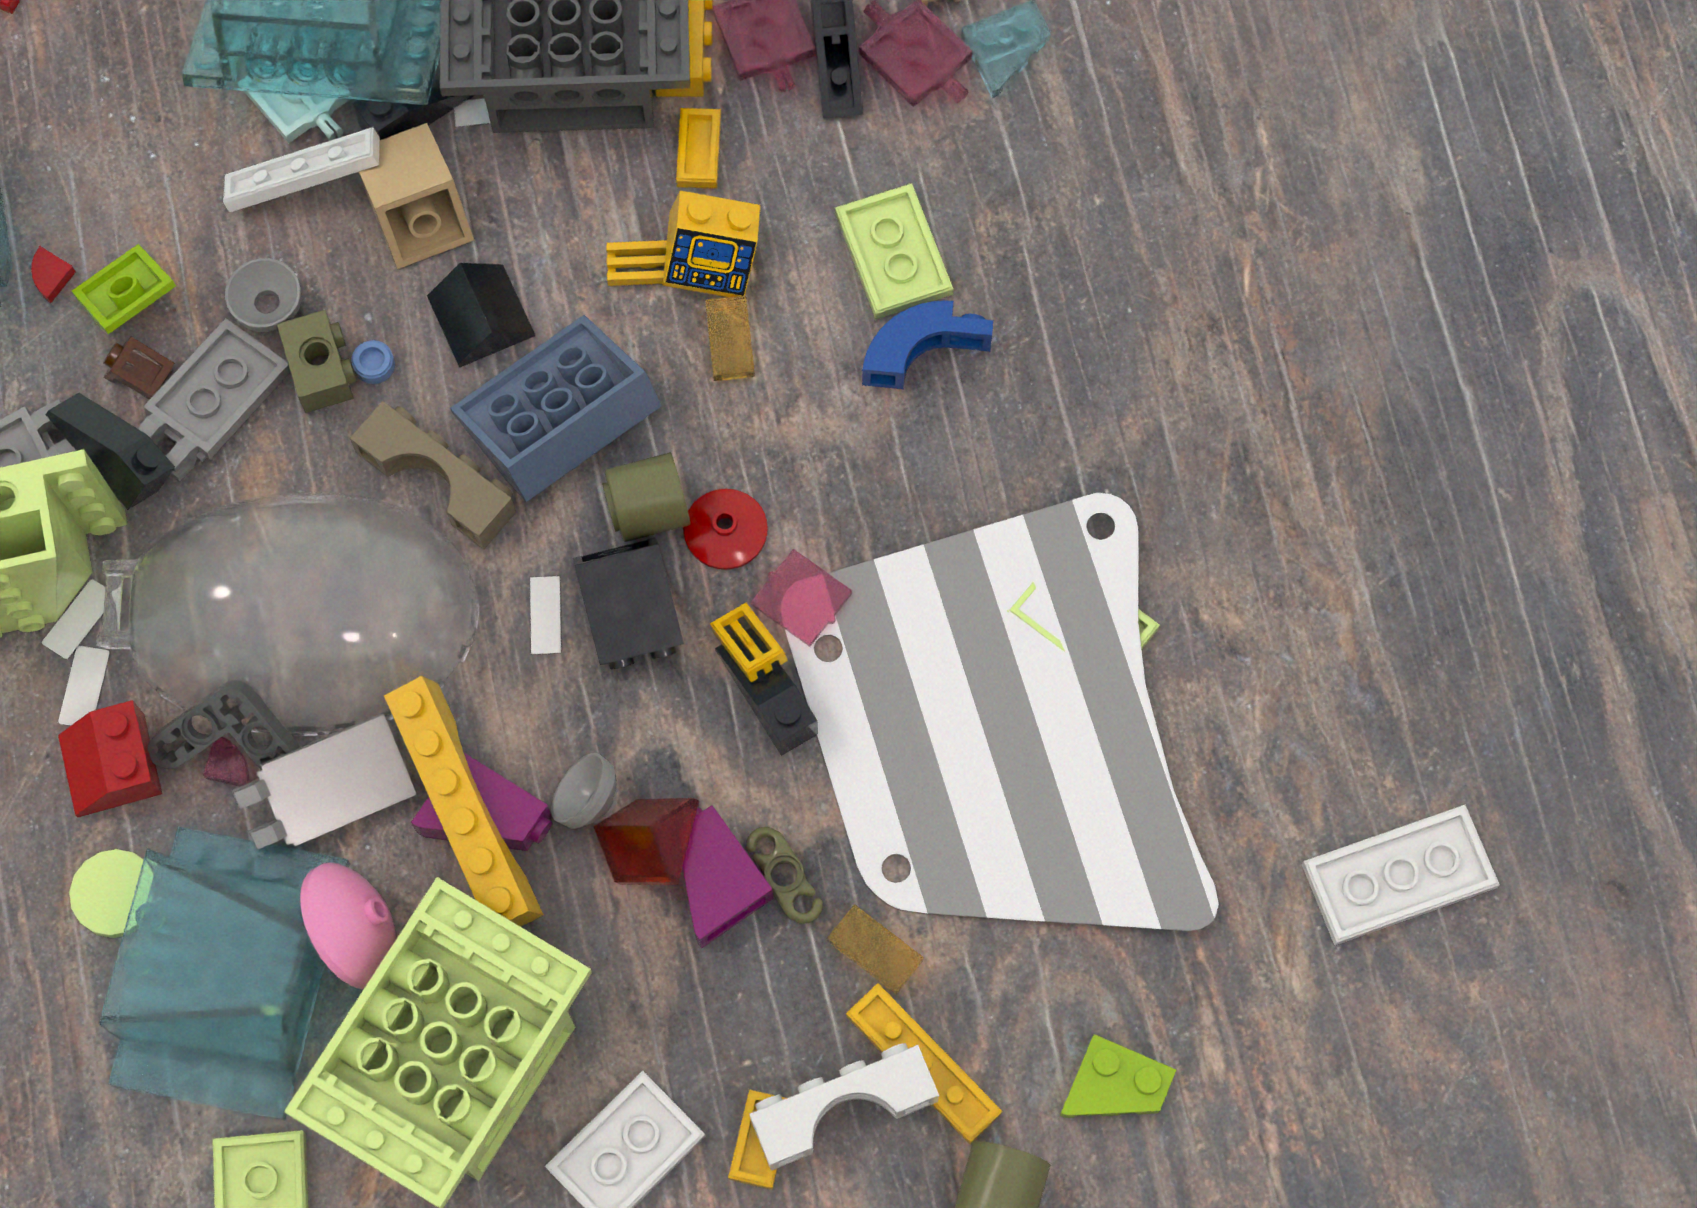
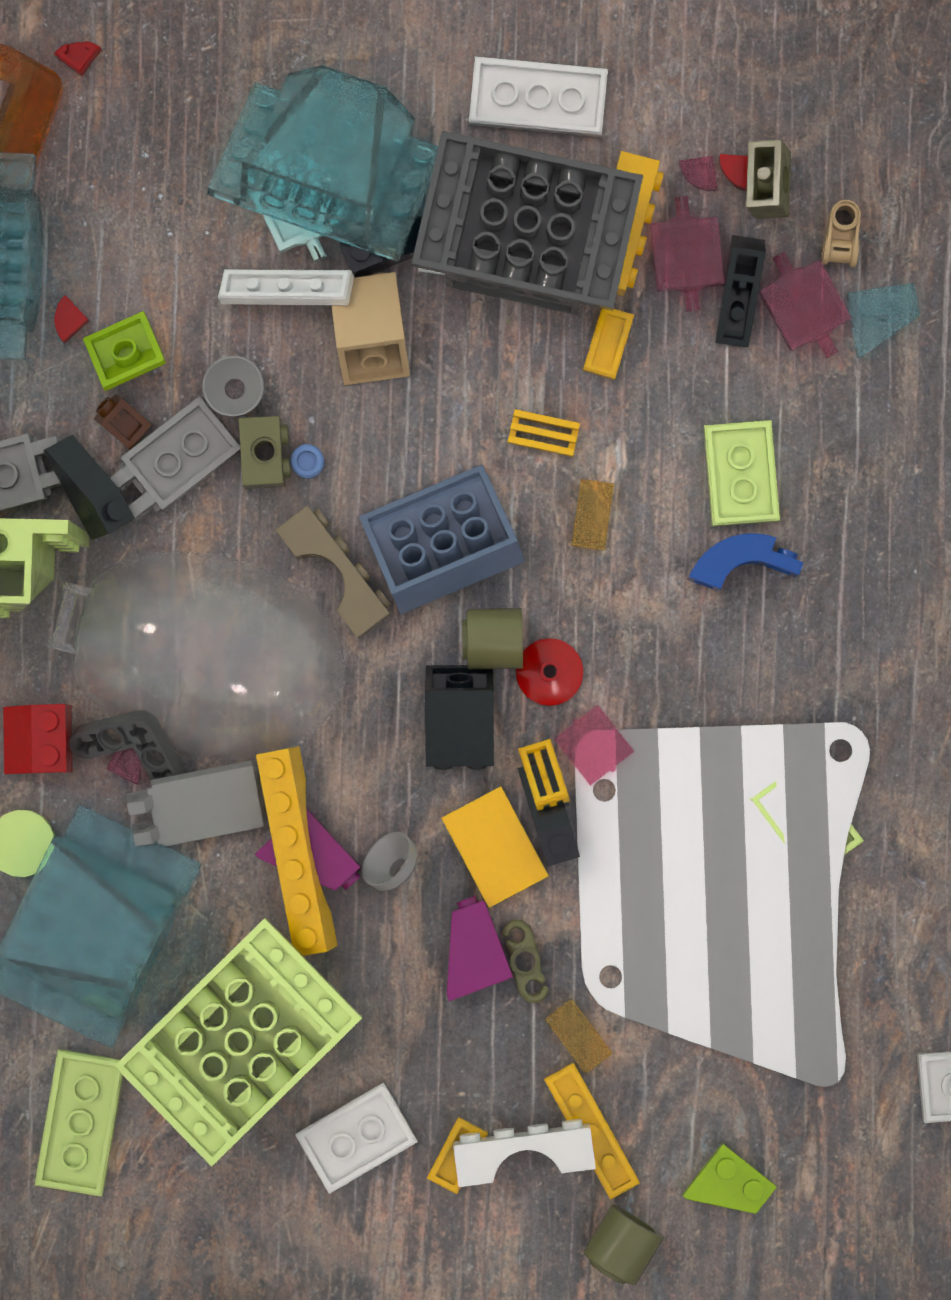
camera: 20 degrees right, 15 degrees up
(77, 620) = (35, 616): white sticker -> none
(83, 684) = (29, 671): white sticker -> none
(346, 922) = (191, 925): bright pink dish -> none
(479, 311) = (400, 441): black slope -> none
(545, 615) = (394, 705): white sticker -> none
(648, 840) = (430, 912): clear red slope -> none
(710, 244) = (596, 437): slope -> none
(711, 746) = (495, 847): none -> yellow tile

